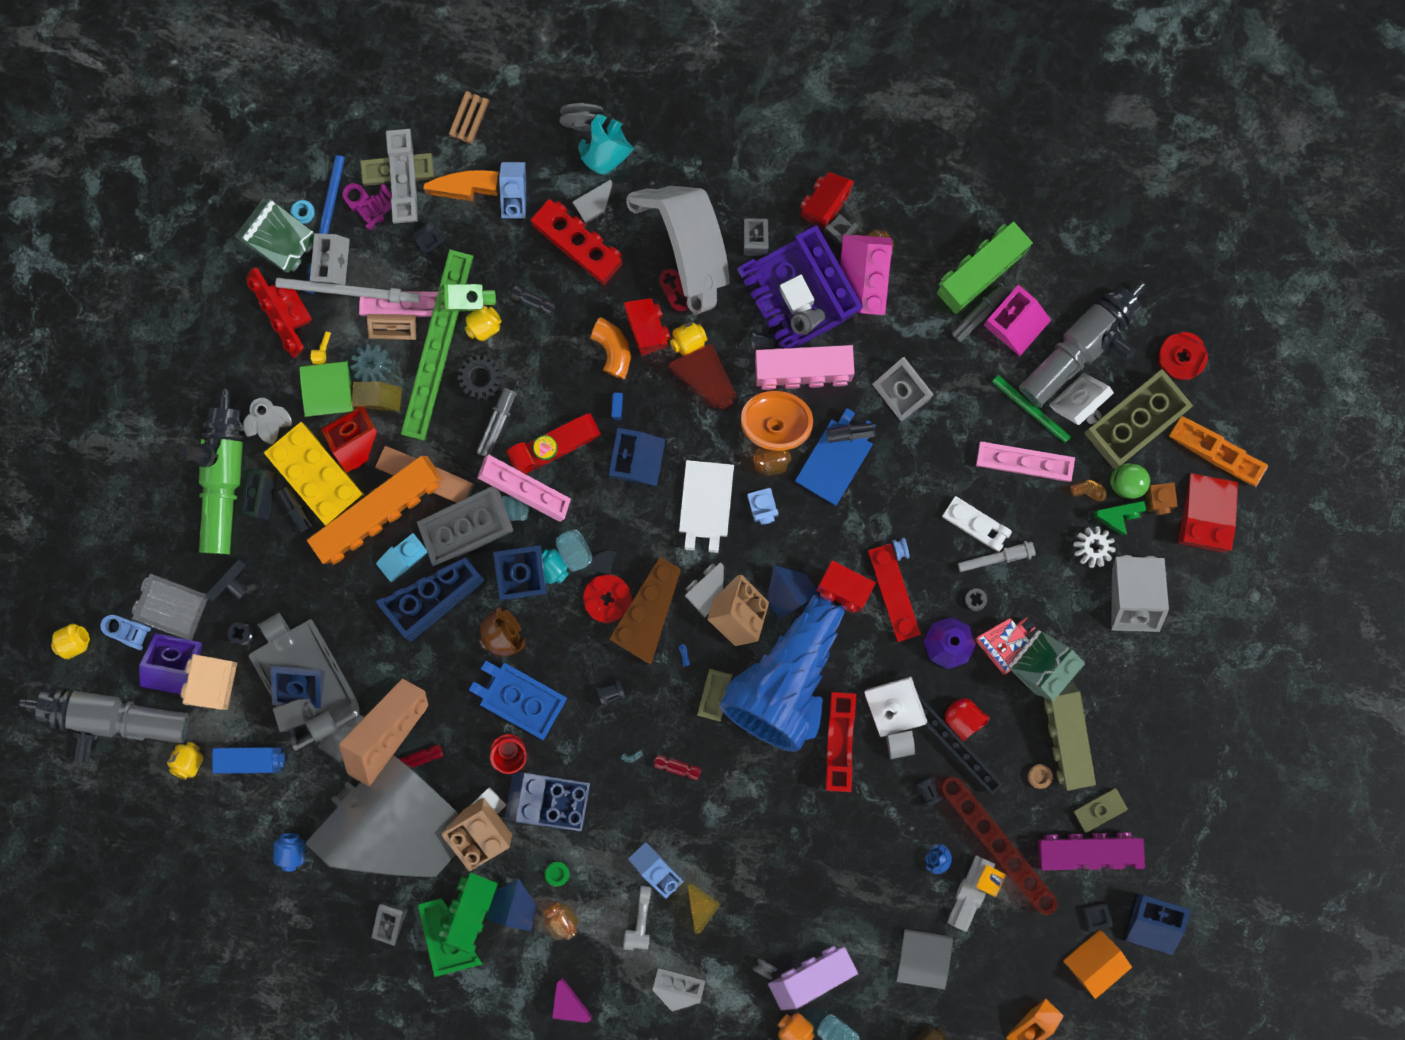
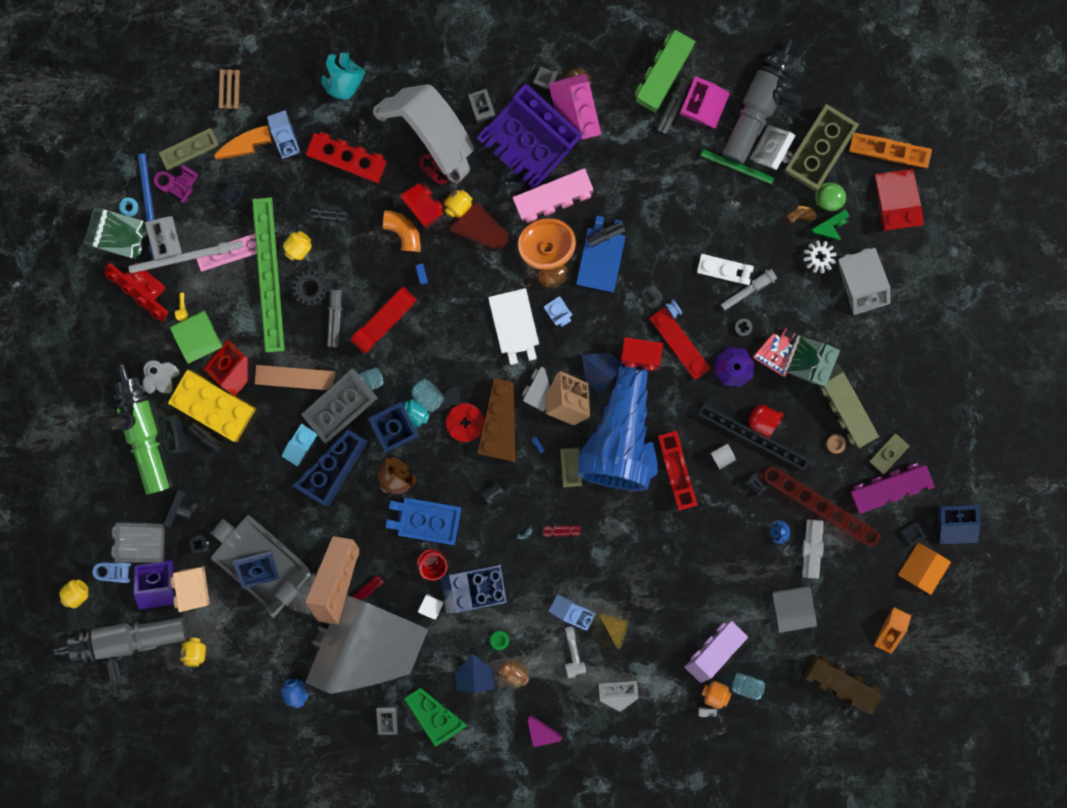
camera: 15 degrees left, 5 degrees up
(247, 760) = (239, 636): blue window -> none
(294, 715) = (262, 591): dark grey brick -> none
(366, 356) = (223, 299): clear light blue gear -> none
(376, 396) = (236, 329): clear yellow slope -> none
(376, 509) = (267, 417): orange brick -> none
(391, 322) = (228, 270): medium nougat tile -> none
(402, 176) = (196, 154): light grey slope -> none
(453, 297) = (270, 235): torso -> none
(467, 912) = (443, 692): green wedge -> none
(477, 834) = (430, 632): medium nougat slope -> none
(524, 488) = (374, 362): bright pink plate -> none
(545, 447) = (378, 325): tile -> none
(578, 115) = (314, 60): dark grey piece -> none
(594, 202) = (348, 122): light grey tile -> none
(636, 457) = (450, 308): dark blue slope -> none
(764, 968) = (678, 657): dark grey bush -> none
(797, 295) = (529, 142): white brick -> none
(806, 321) = (543, 160): dark grey cone -> none
(827, 199) = (526, 60): red slope -> none
(895, 706) = (709, 429): white tile -> none
(903, 389) = (634, 186): light grey slope -> none
(991, 880) = (824, 534): light orange slope -> none
(1025, 461) = (746, 209): bright pink plate -> none
(1161, 498) = (858, 202): dark orange brick -> none
(1195, 352) = (830, 92): red plate -> none

